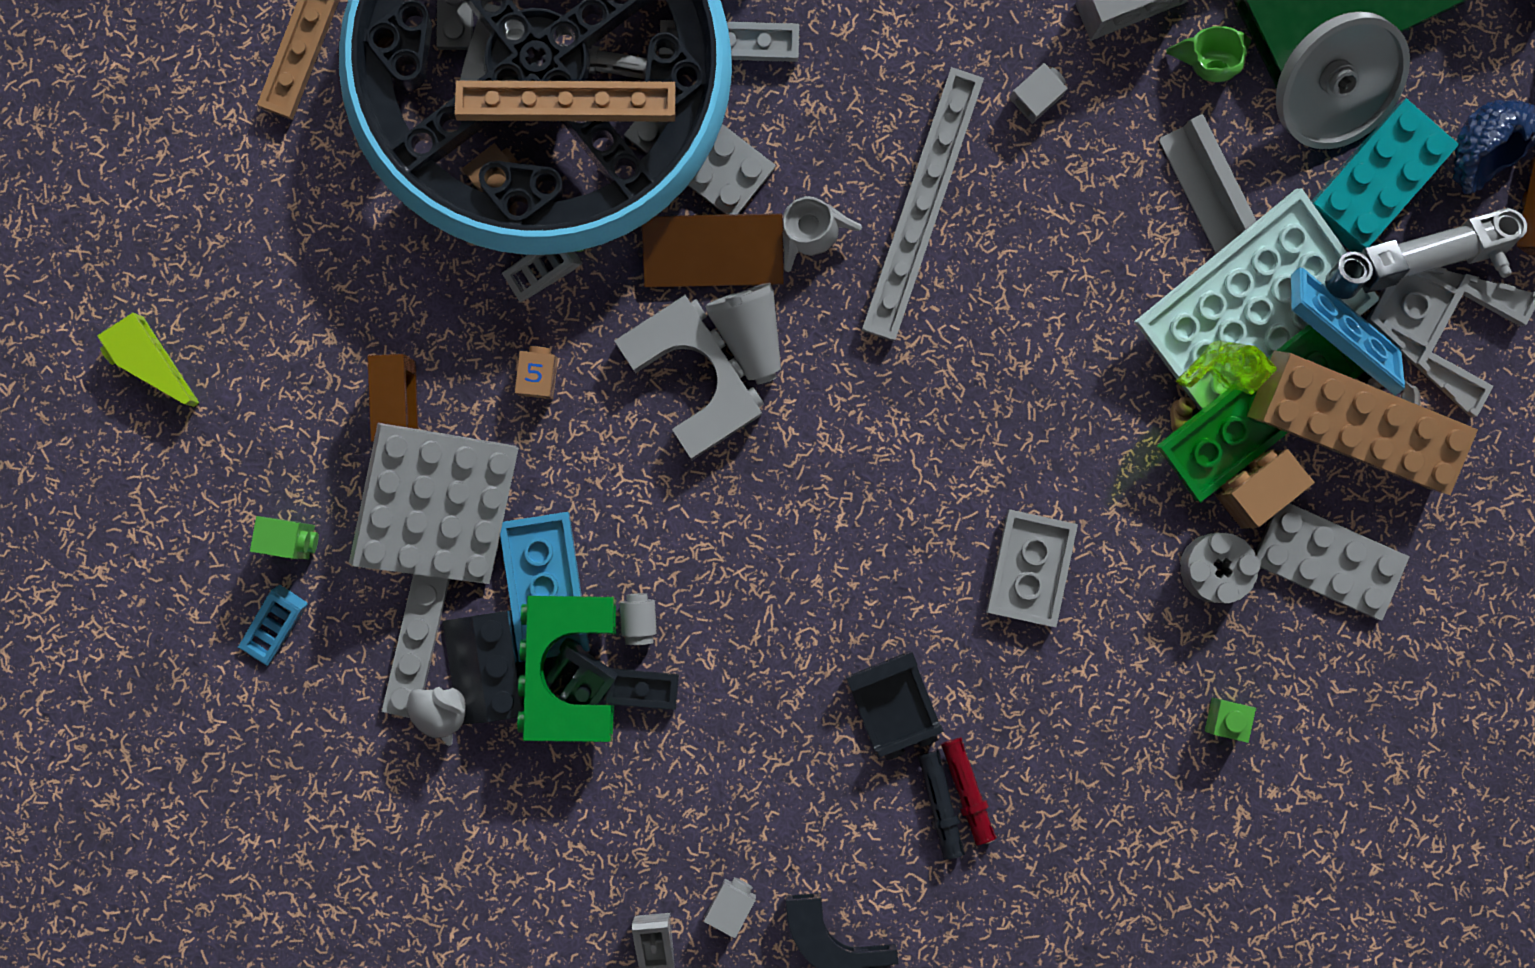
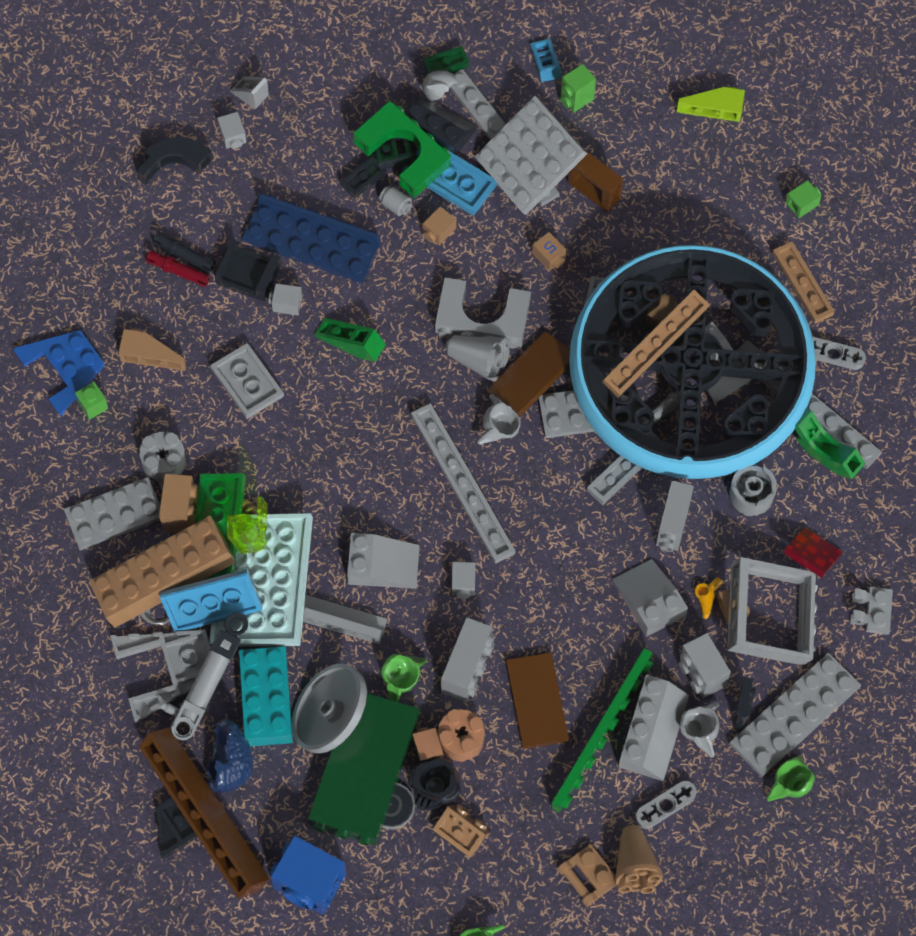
camera: 135 degrees right, 20 degrees down
(184, 141) = (803, 199): none -> bright green brick
(391, 739) = (450, 61): none -> dark green plate
(625, 534) = (439, 226): none -> medium nougat brick
(781, 671) = (312, 238): none -> dark blue bracket
(867, 500) = (351, 338): none -> green slope
(889, 623) = (286, 299): none -> light grey brick
(1103, 201) = (382, 562): none -> light grey slope
(1107, 723) = (143, 349): none -> medium nougat slope
(1196, 797) = (71, 358): none -> blue wing

